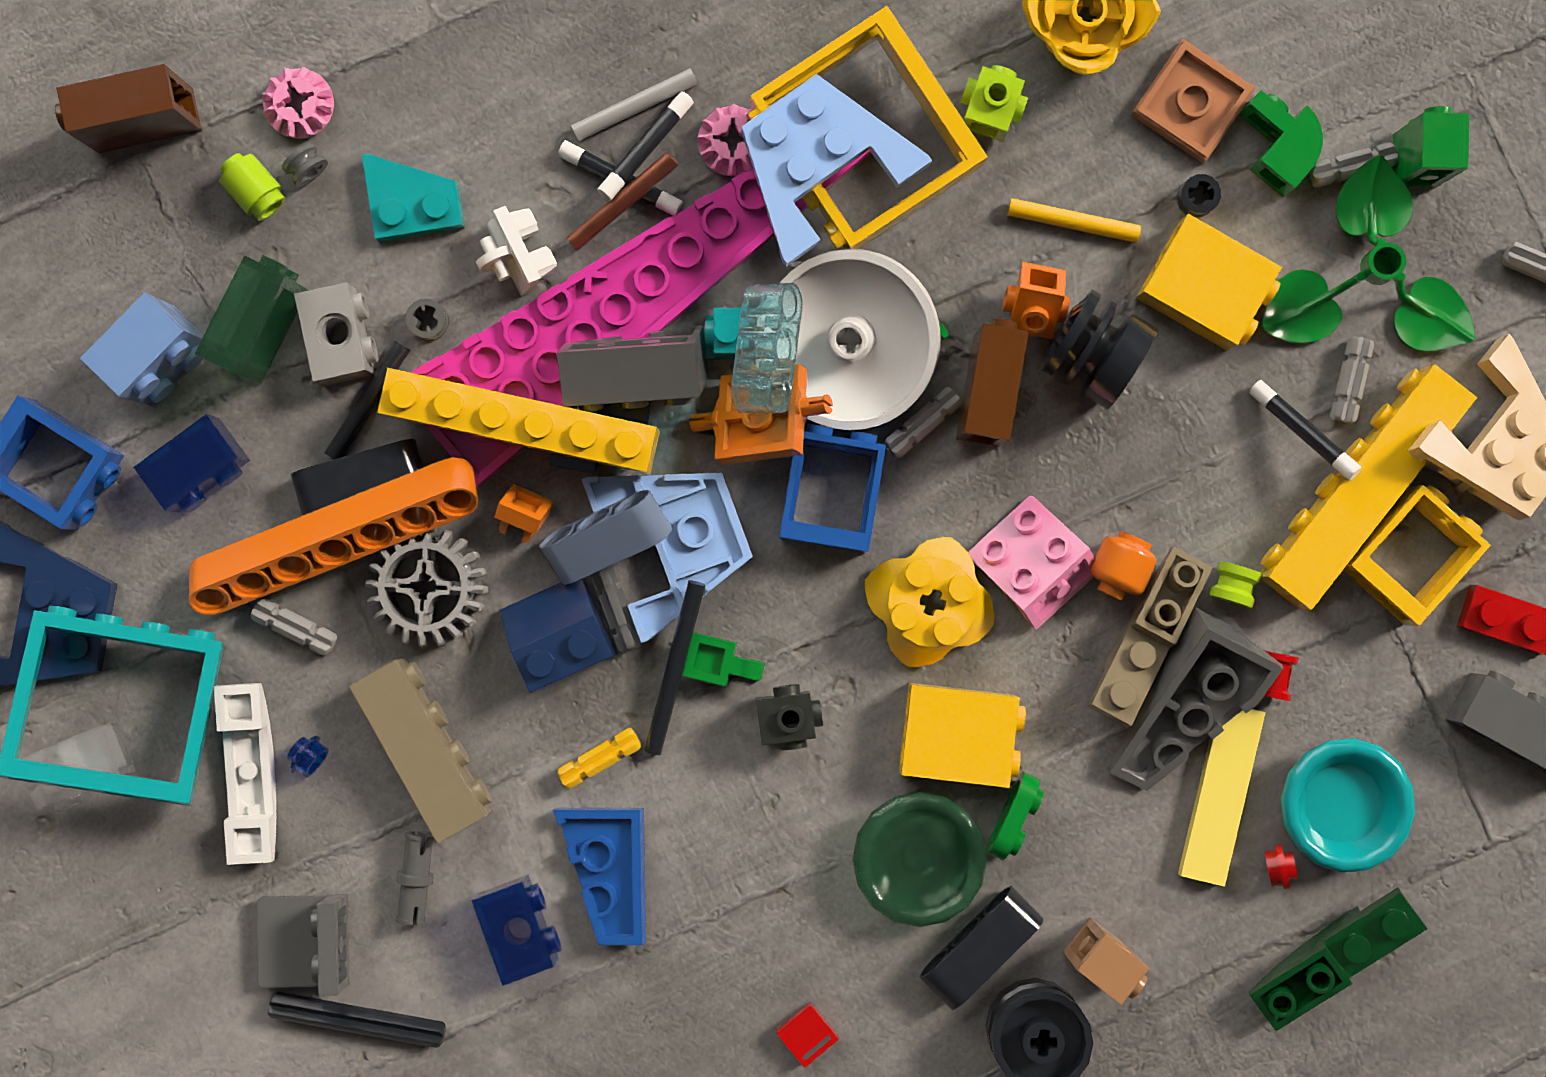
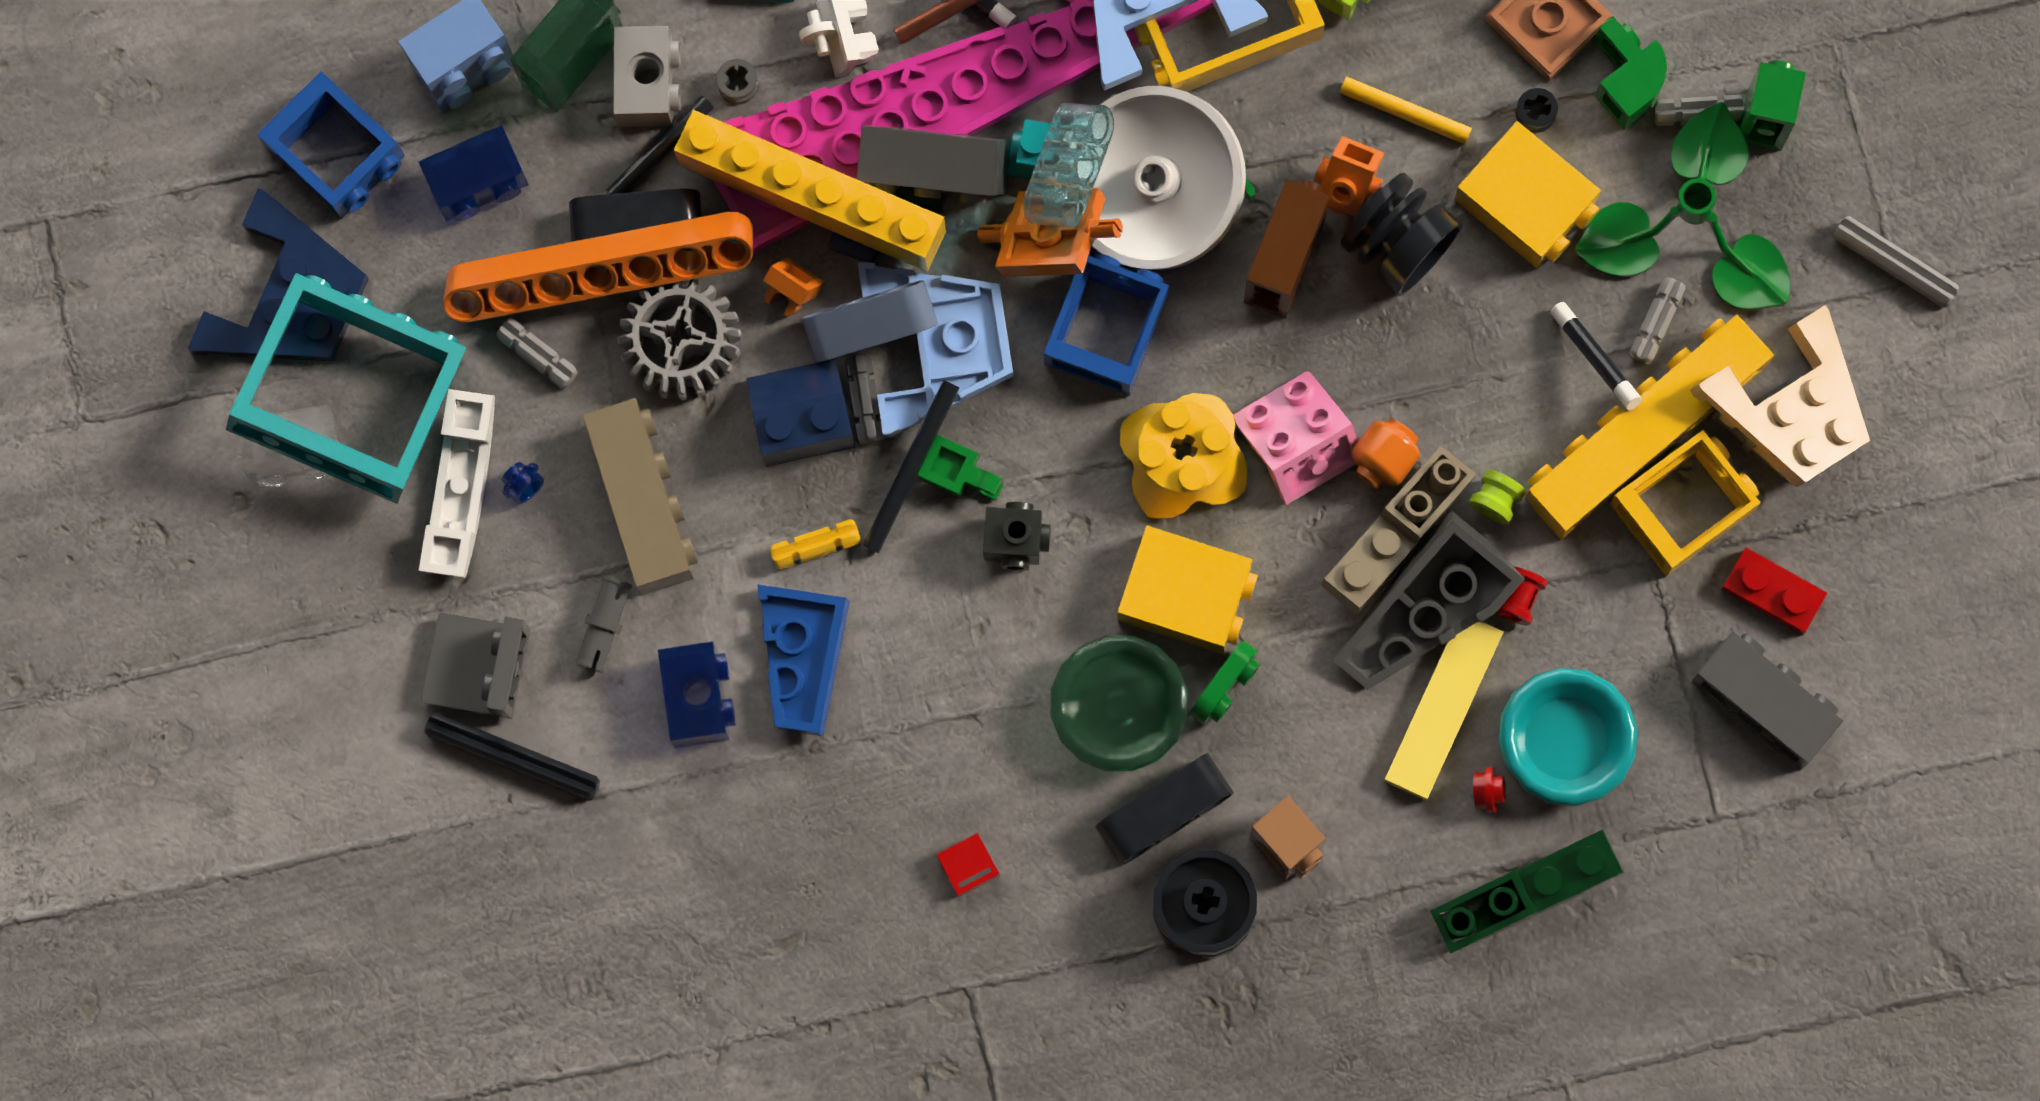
camera: 15 degrees right, 10 degrees down
(923, 422) = (1212, 277): light grey axle -> none

